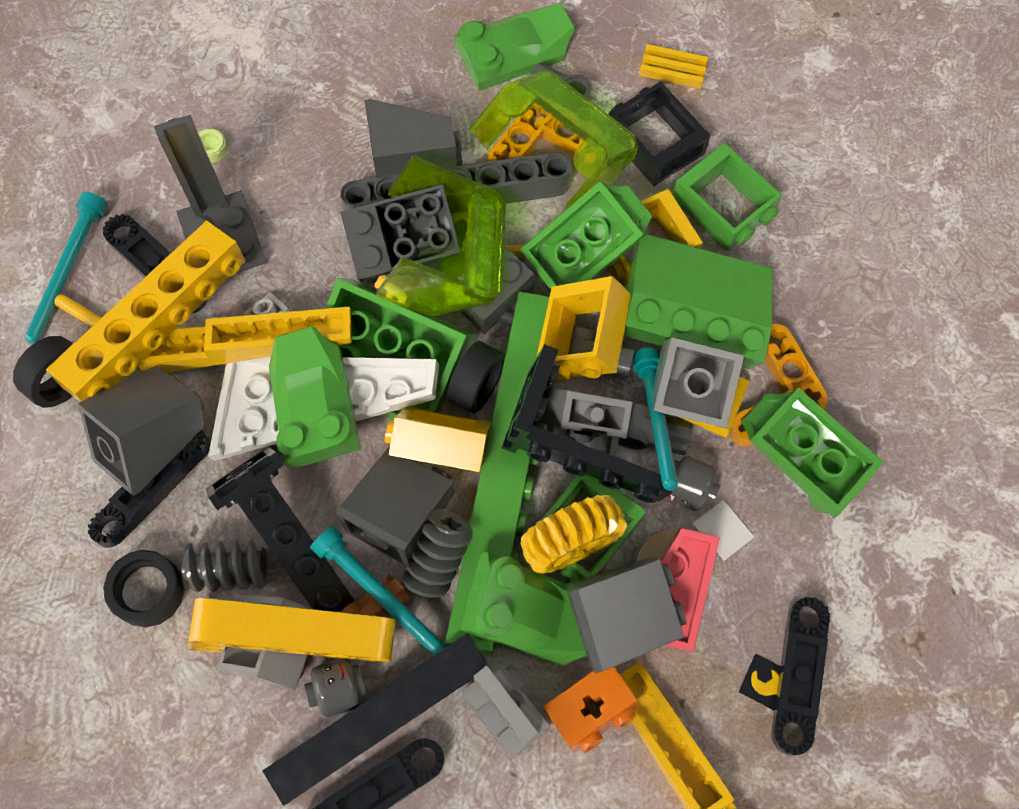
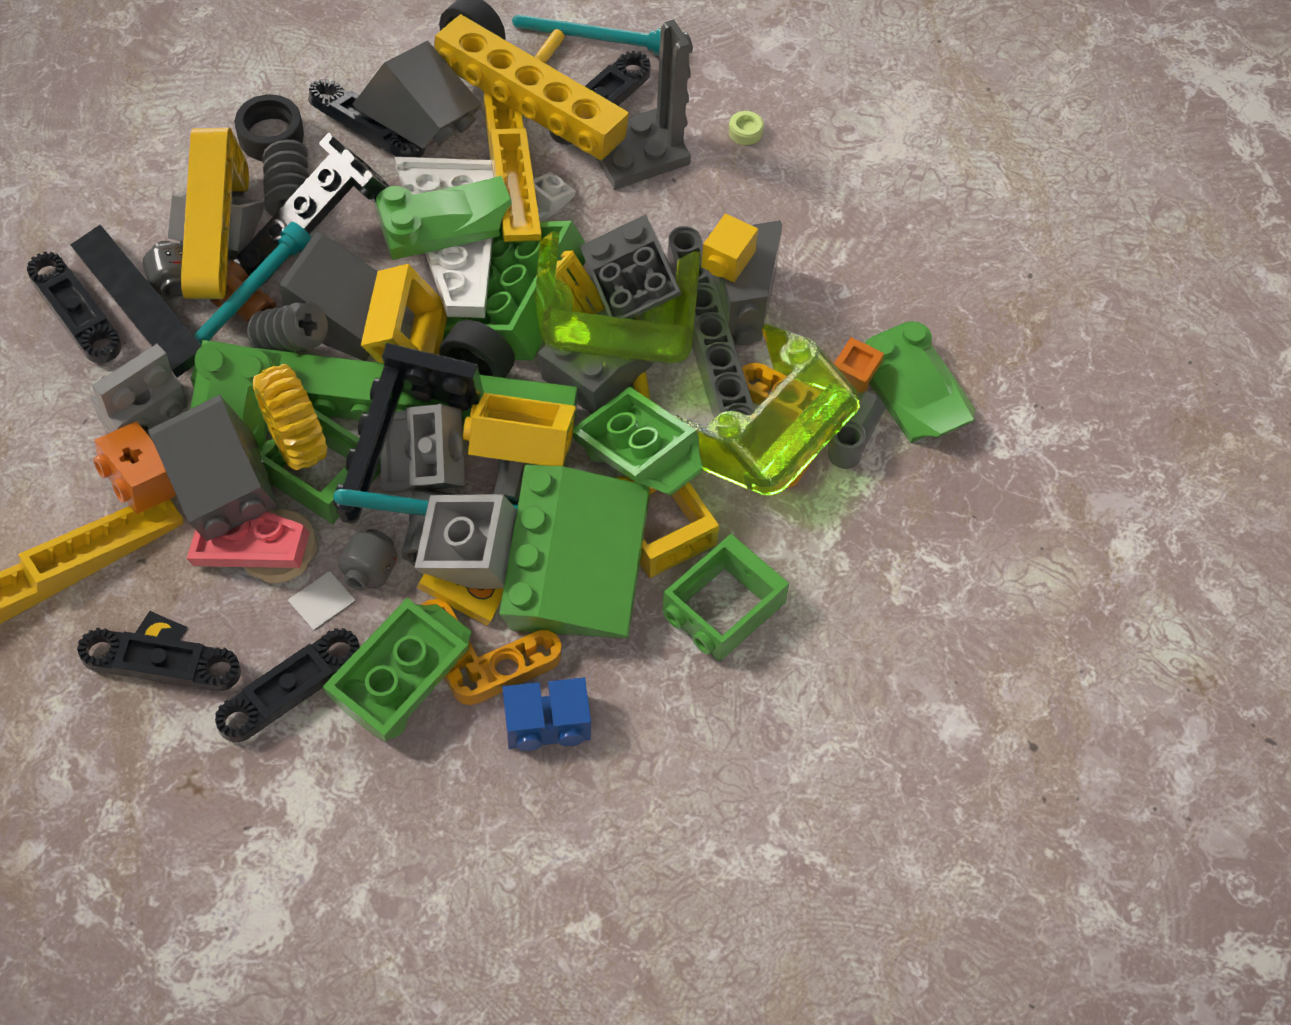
camera: 85 degrees right, 10 degrees down
(405, 133) = (729, 248): none -> yellow brick
(501, 71) = (859, 363): none -> orange panel
(674, 62) = (916, 525): yellow tile -> none
(679, 155) = (780, 551): black window -> none
(822, 554) = (285, 686): none -> black plate
(841, 337) = (549, 719): none -> blue piece

